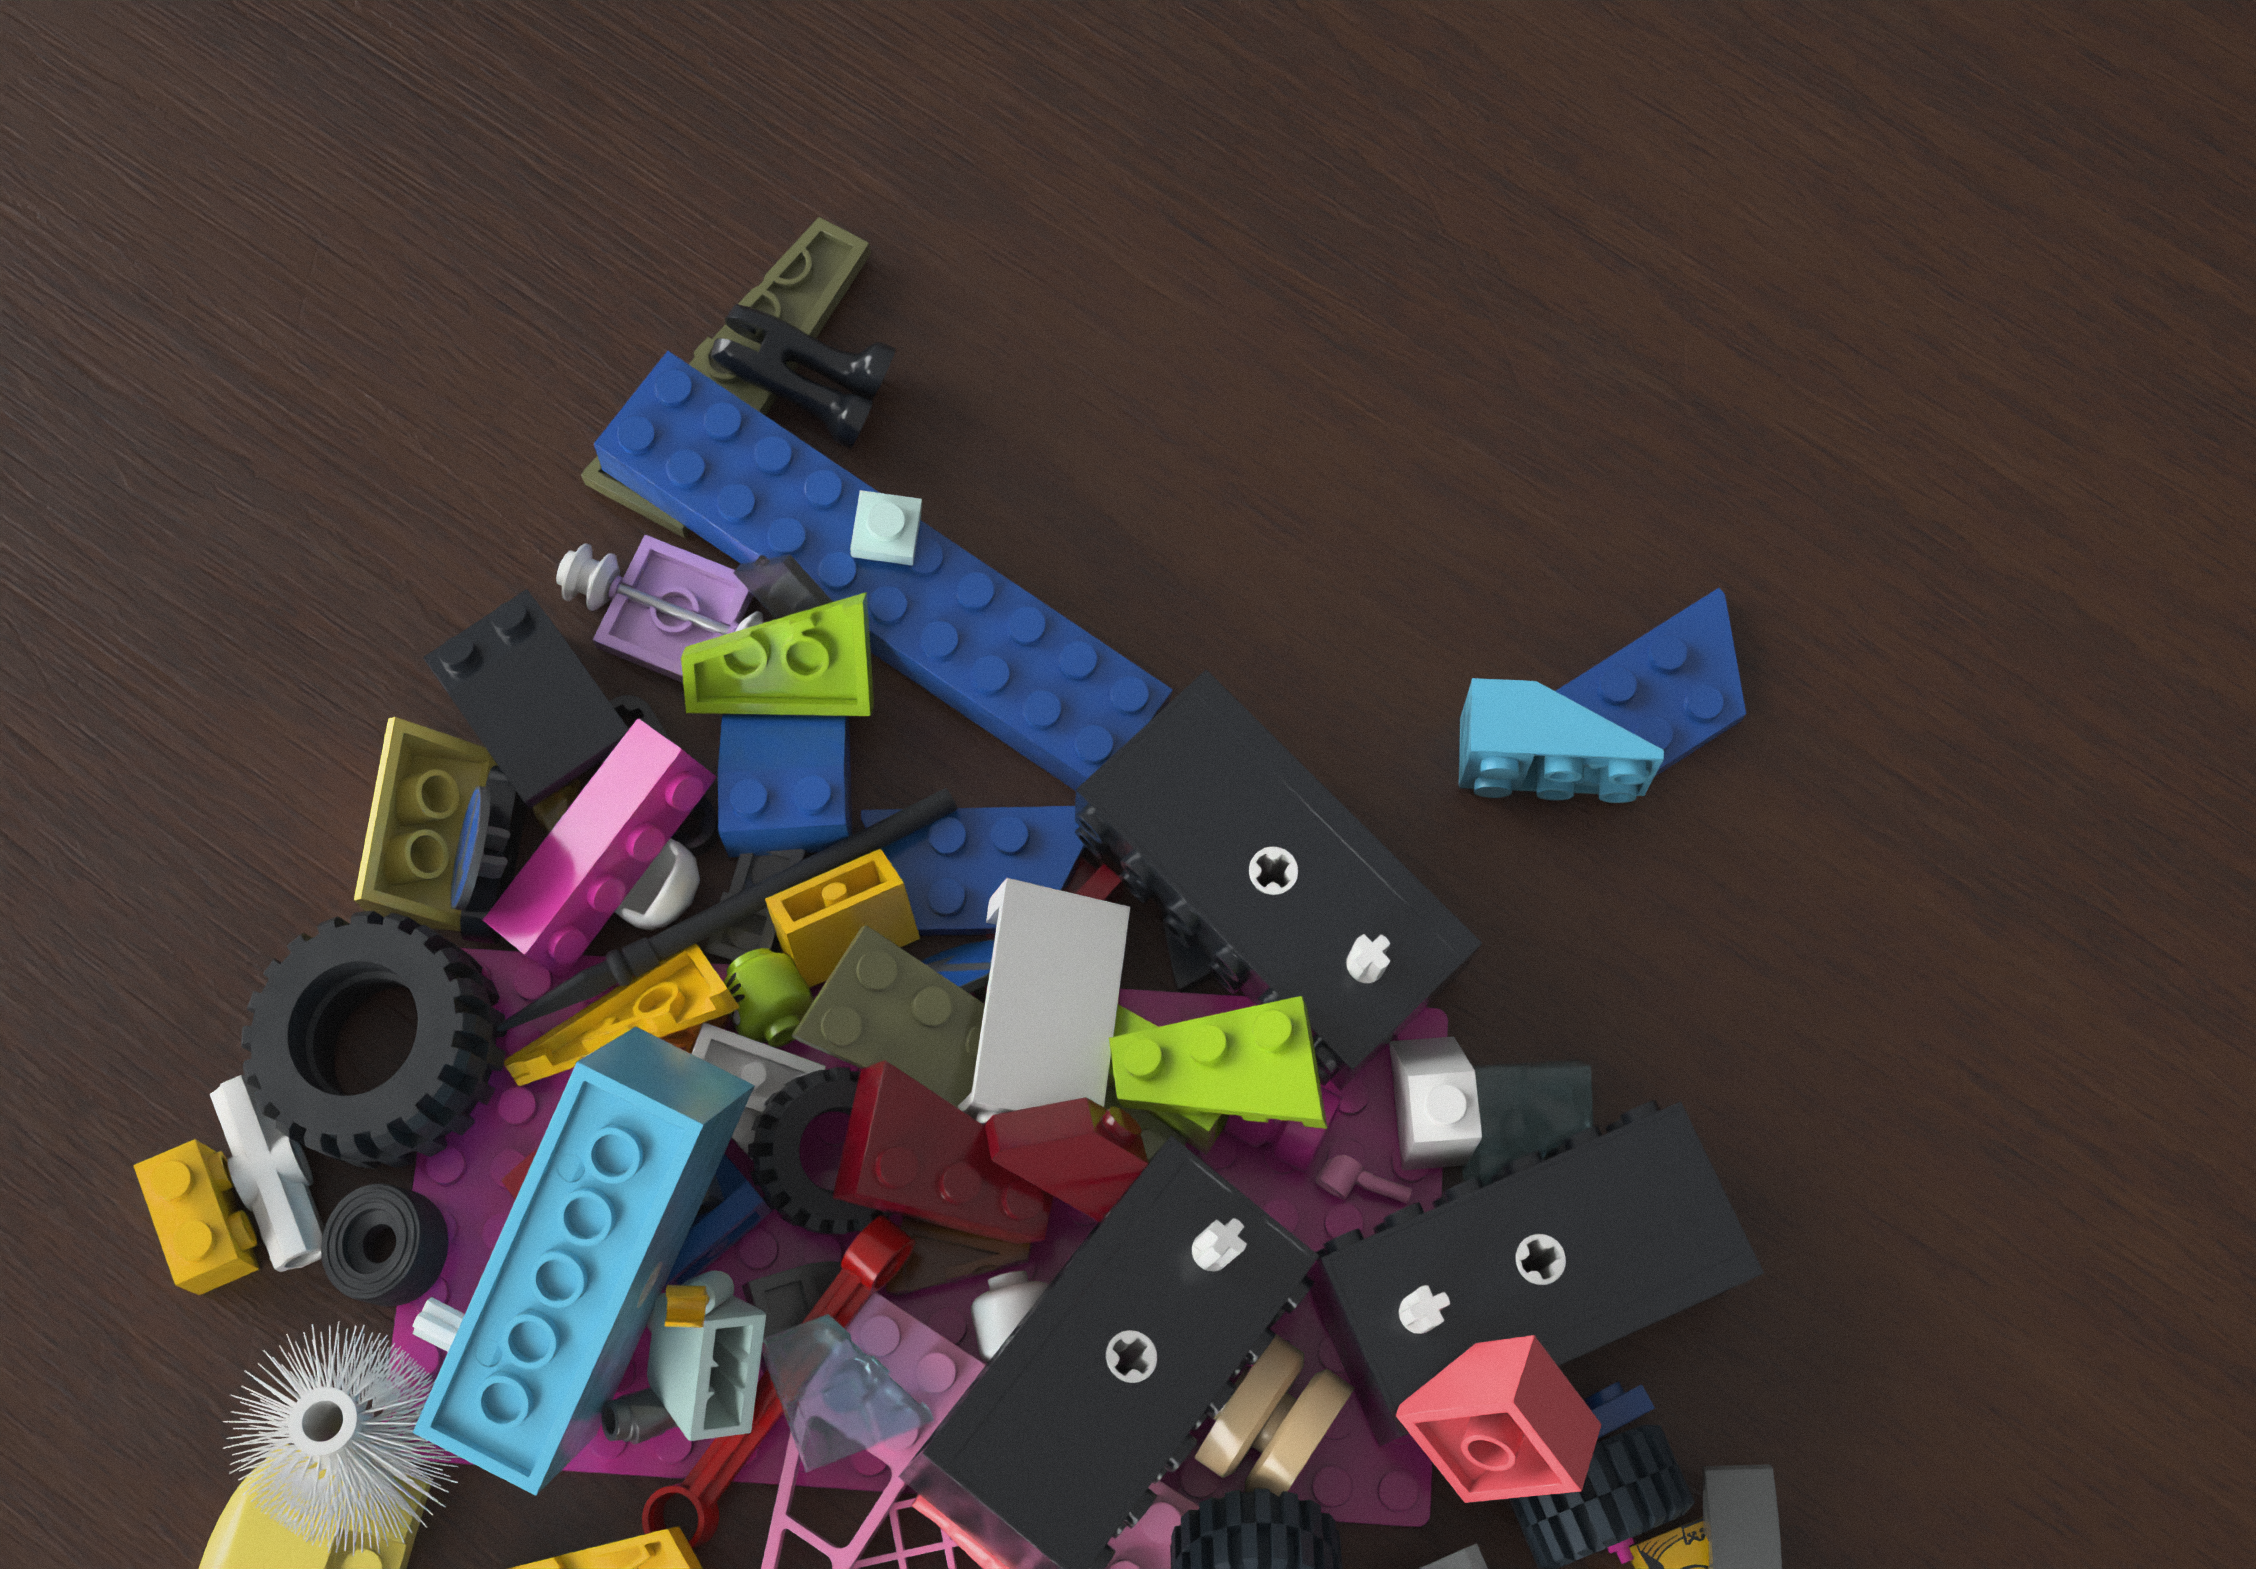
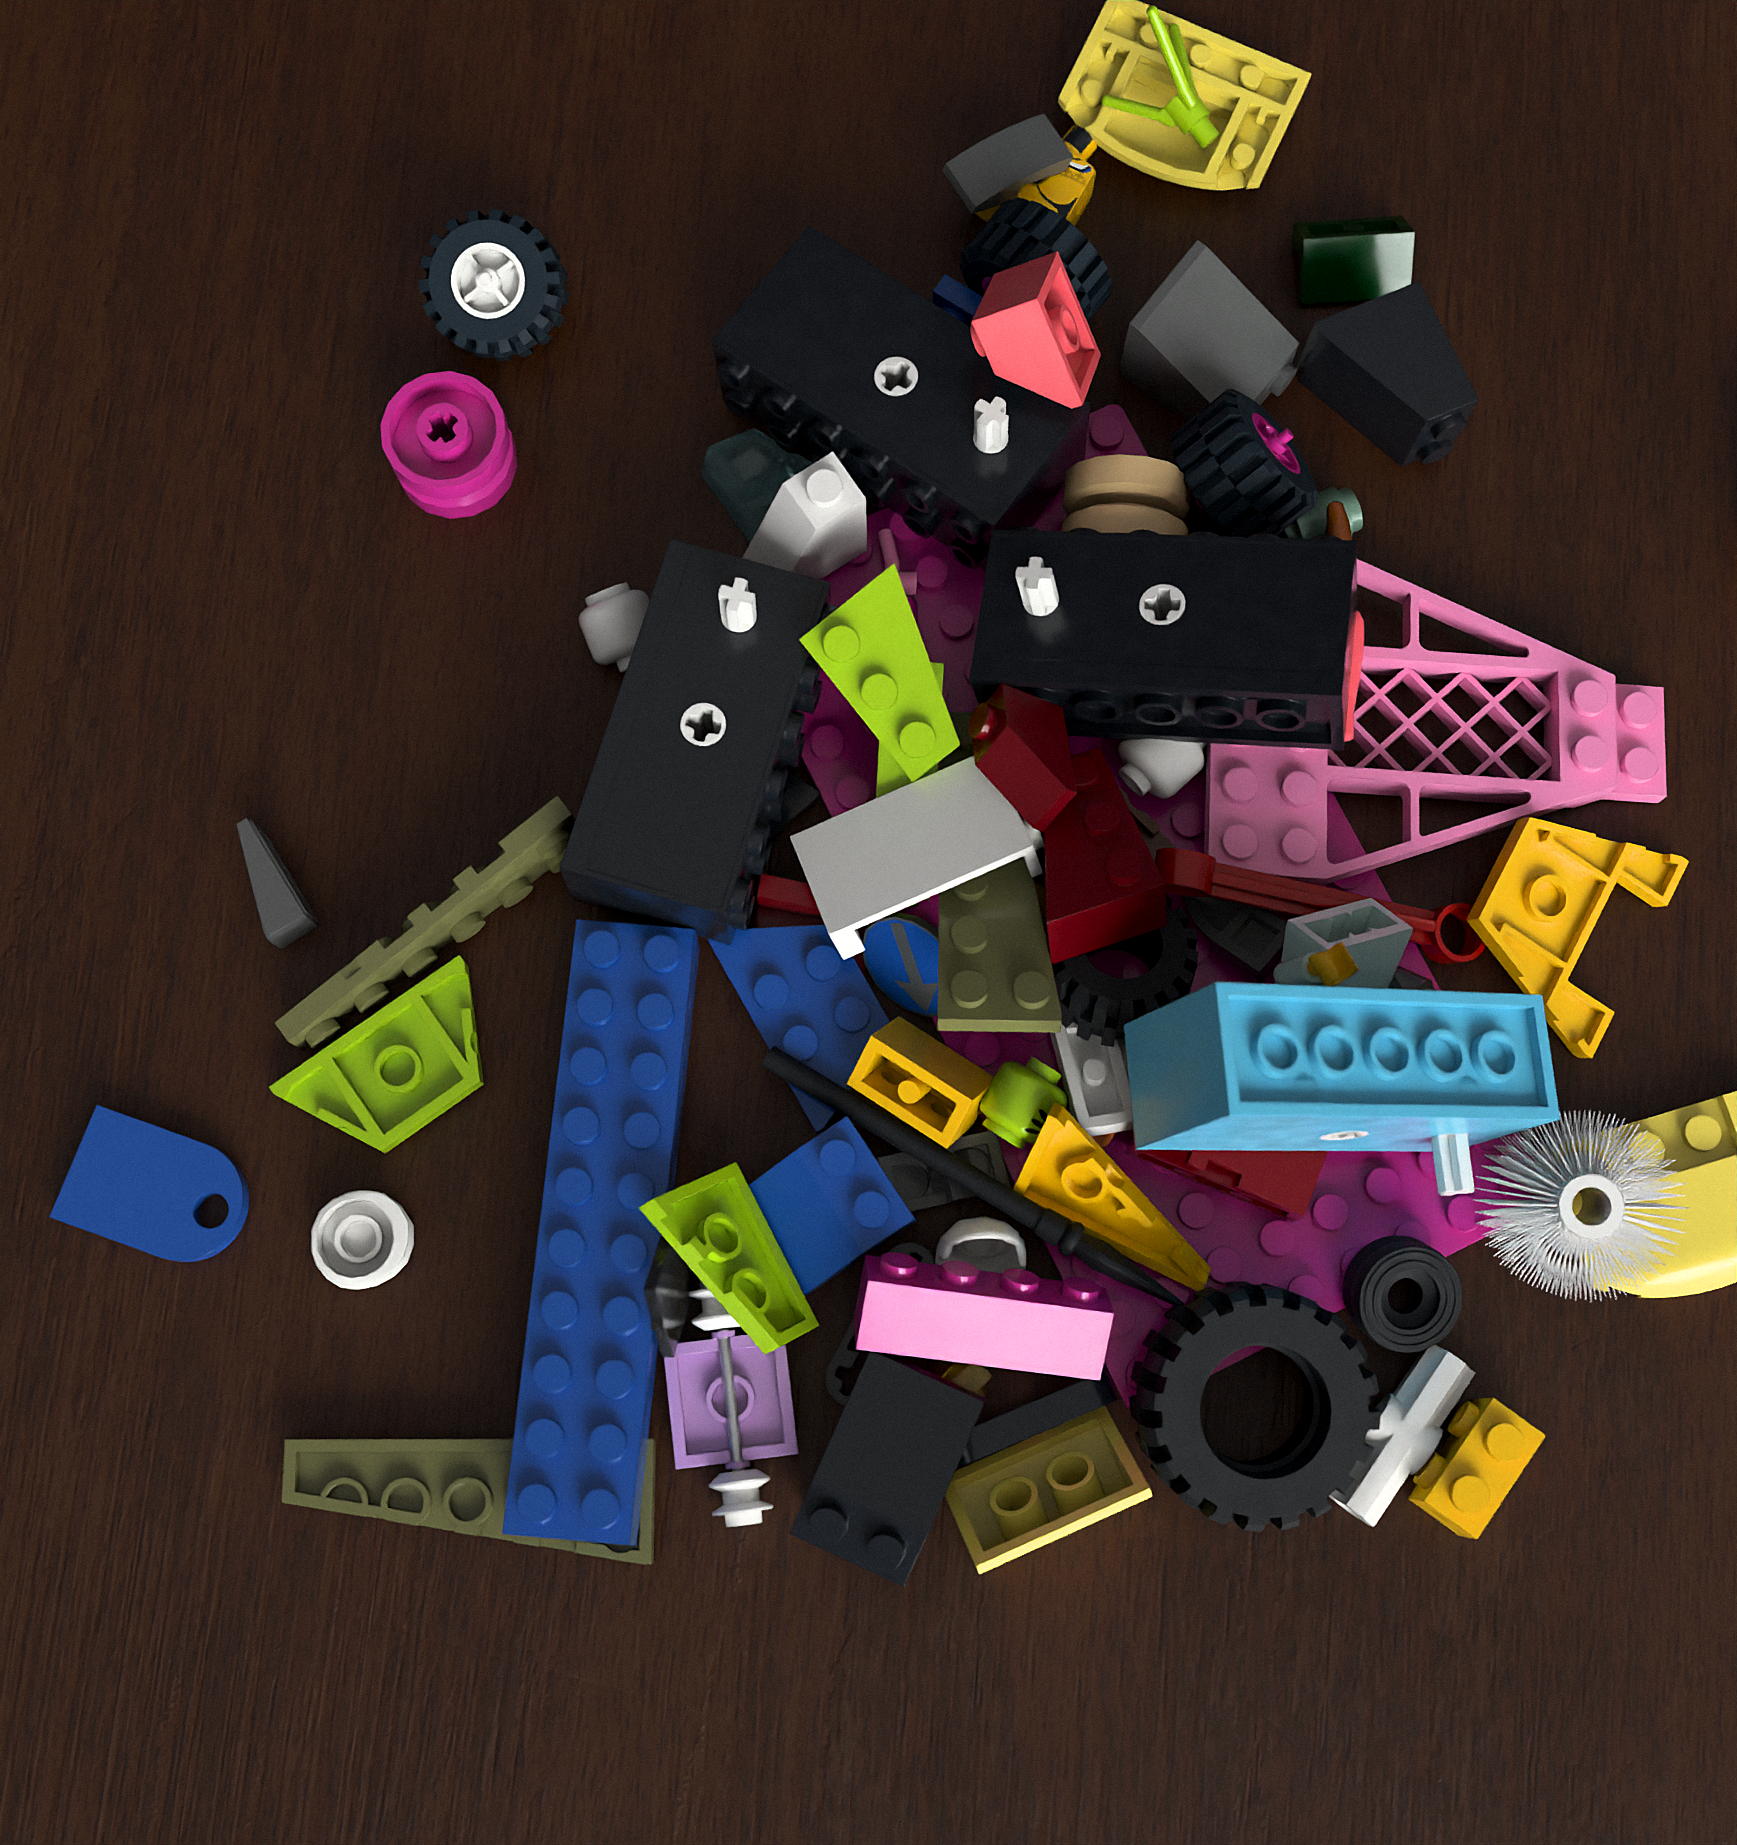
camera: 120 degrees left, 5 degrees up
(469, 857) = (1049, 1422): dark grey piece -> none
(784, 342) = (416, 1366): black piece -> none
(836, 1393) = (1307, 841): clear light blue slope -> none
(886, 527) = (568, 1227): light aqua plate -> none
(1004, 386) = (361, 1239): none -> white piece
(1140, 488) = (396, 1065): none -> lime wing
(1156, 241) = (149, 1189): none -> blue tile
(1234, 549) = (363, 983): none -> olive wing
(1368, 461) = (279, 901): none -> dark grey slope
(1458, 882) = (613, 623): none -> white head
(1543, 742) = (462, 608): medium azure slope -> none
(1672, 683) = (362, 560): blue wing -> none
(1726, 823) = (449, 444): none -> dark pink wheel
(1876, 947) = (494, 285): none -> black wheel

